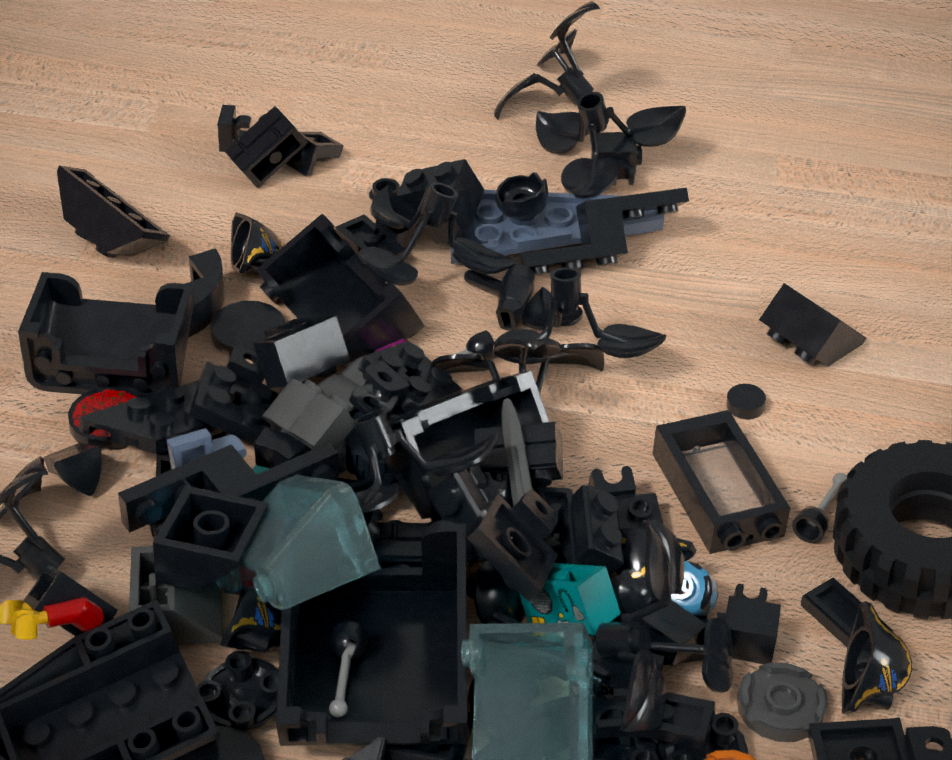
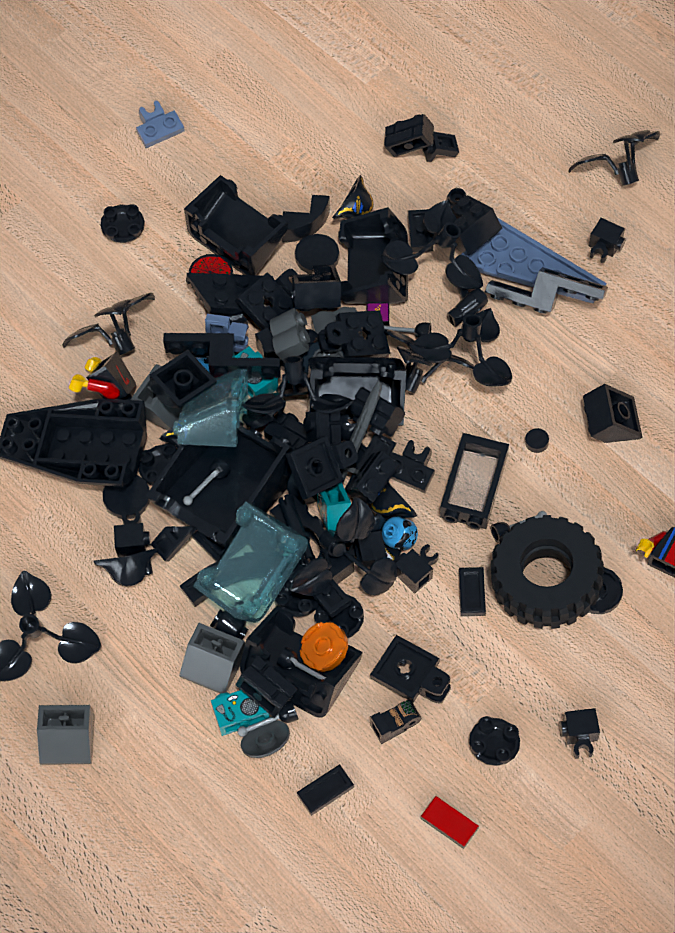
camera: 40 degrees right, 20 degrees up
(77, 466) = (173, 297): black tile -> none
(104, 216) = (296, 141): black wedge -> none
(230, 126) = (406, 107): black tile -> none
(522, 196) = (518, 244): black hair -> none
(594, 176) = (596, 206): black plant -> none
(781, 702) = (400, 615): dark grey tile -> none
(874, 663) = (456, 627): black hat -> none

